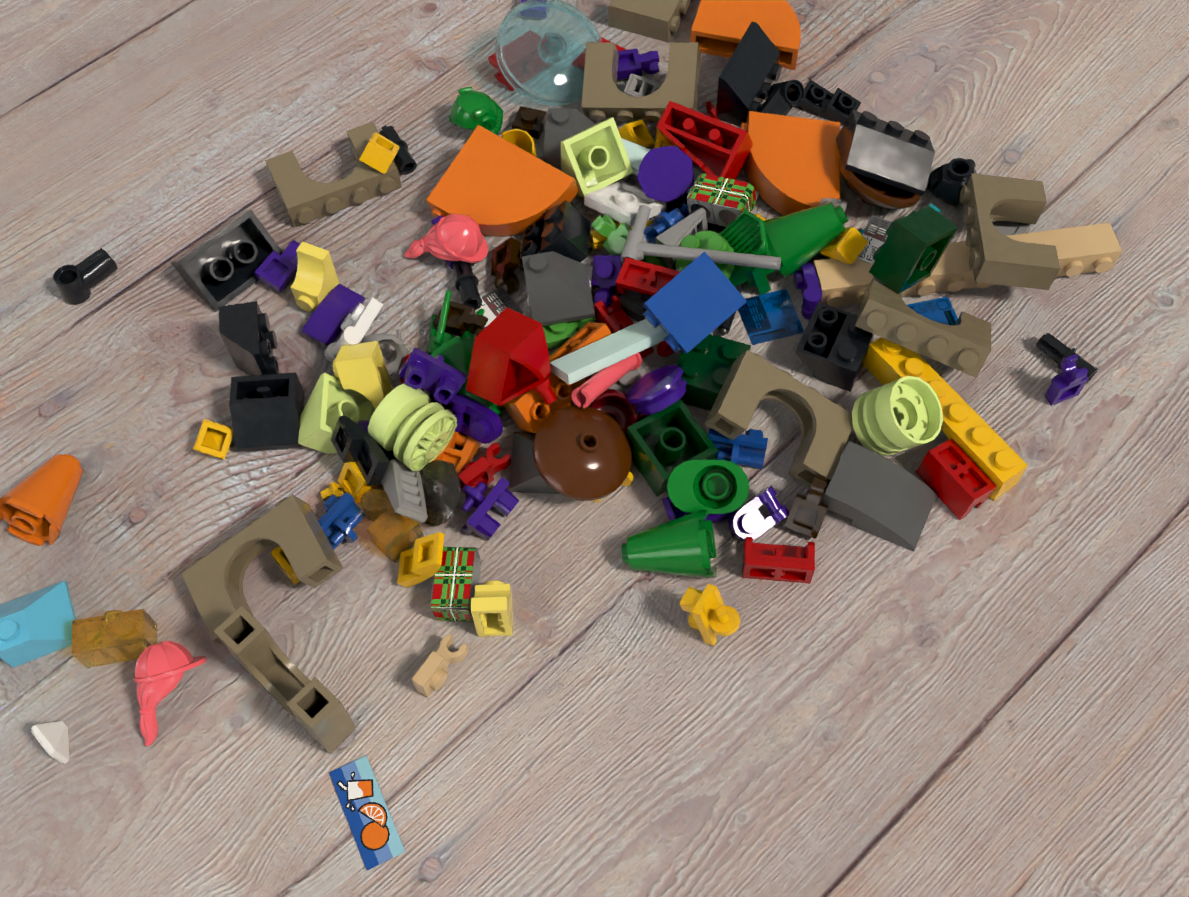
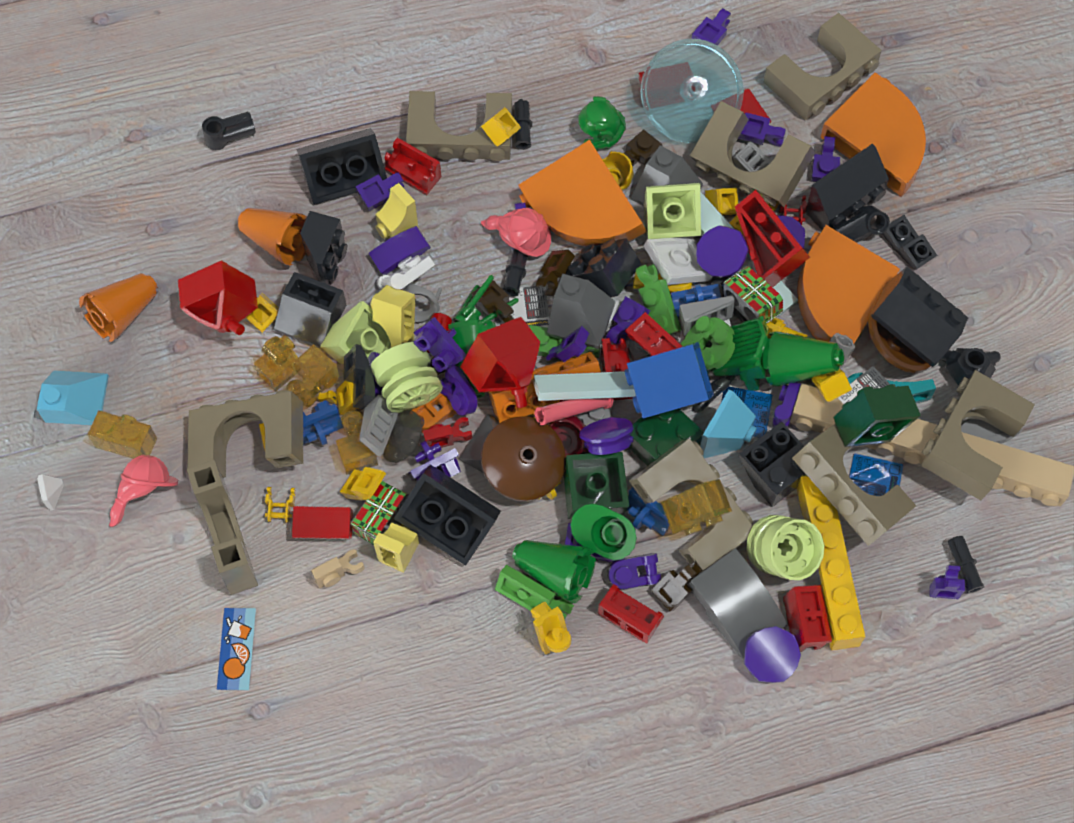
camera: 25 degrees right, 5 degrees up
(157, 437) = (218, 297): none -> red piece
(189, 350) = (275, 232): none -> orange cone
(259, 478) = (277, 363): none -> clear yellow brick
(305, 225) = (414, 166): none -> red hinge
(305, 473) = (317, 374): none -> clear yellow brick
(324, 632) = (289, 503): none -> yellow piece
(395, 623) = (322, 522): none -> red hinge
(531, 549) = (447, 514): none -> black slope
(566, 324) = (571, 346): none -> dark purple plate
(637, 246) = (660, 307): light grey bar -> none
(658, 589) = (528, 592): none -> bright green plate
(709, 67) = (826, 162): none -> dark purple plate
(769, 327) = (729, 427): none -> medium azure slope
(789, 416) = (696, 506): none -> clear yellow brick
(946, 529) = (772, 654): none -> dark purple hat

